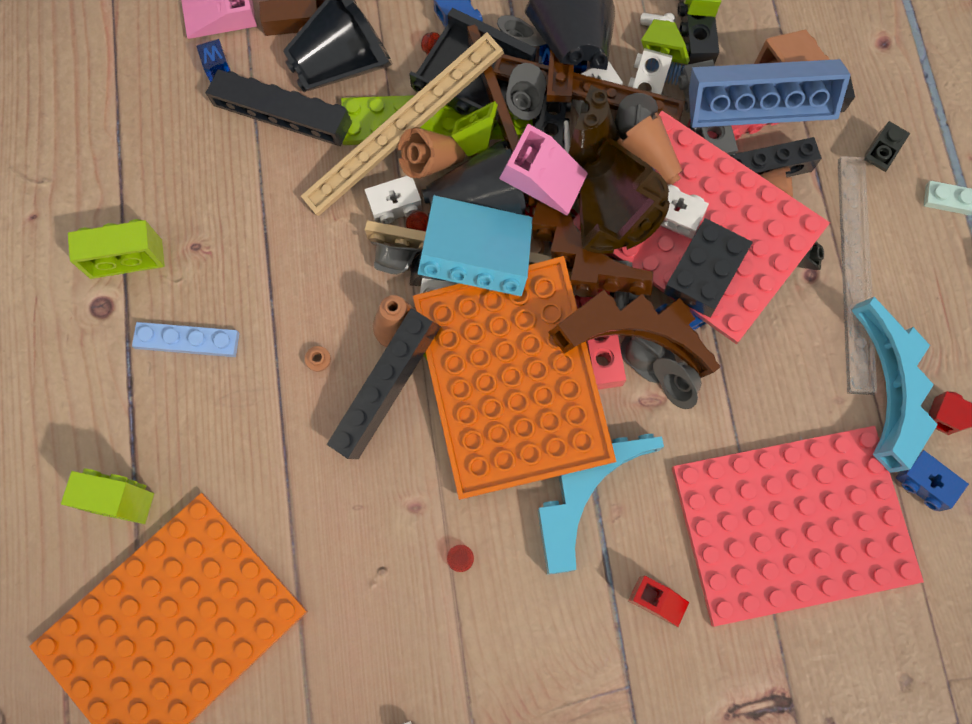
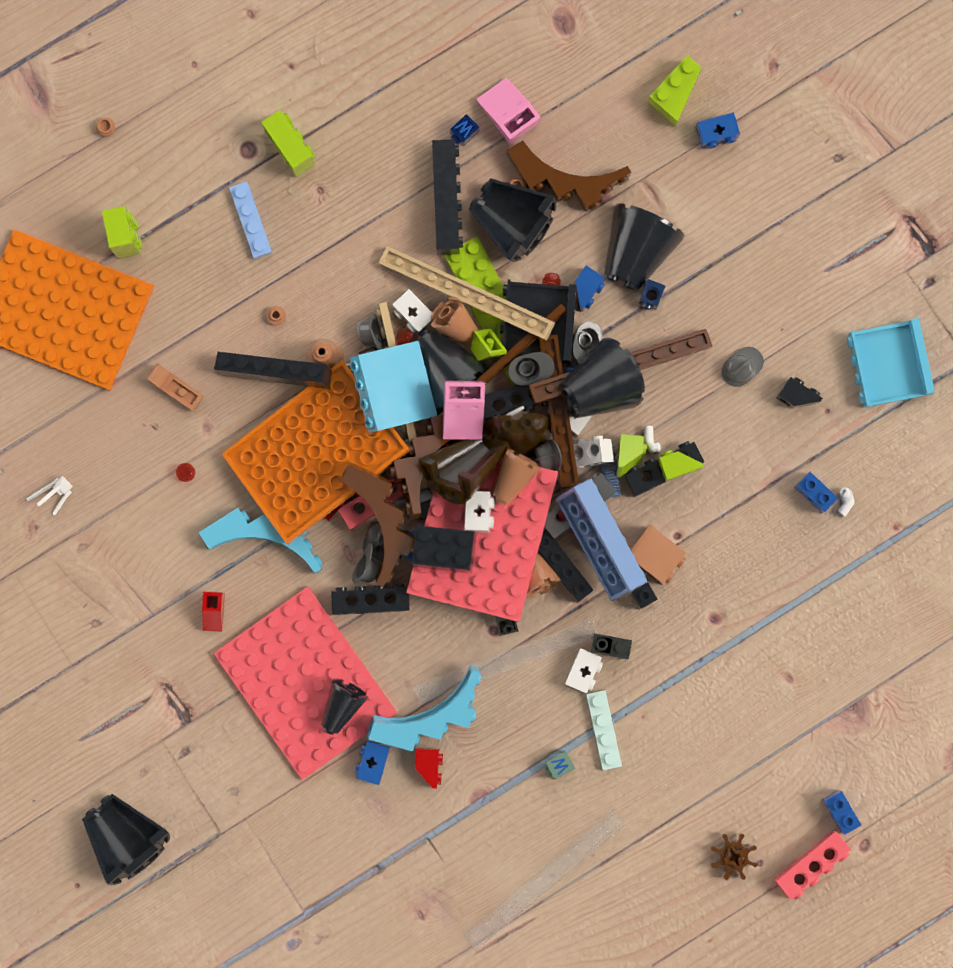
camera: 70 degrees right, 10 degrees up
(344, 523) = (175, 387): none -> nougat plate
(740, 362) = (340, 607): none -> black brick
(853, 484) = (341, 705): none -> black cone
(899, 193) = (575, 677): none -> white brick

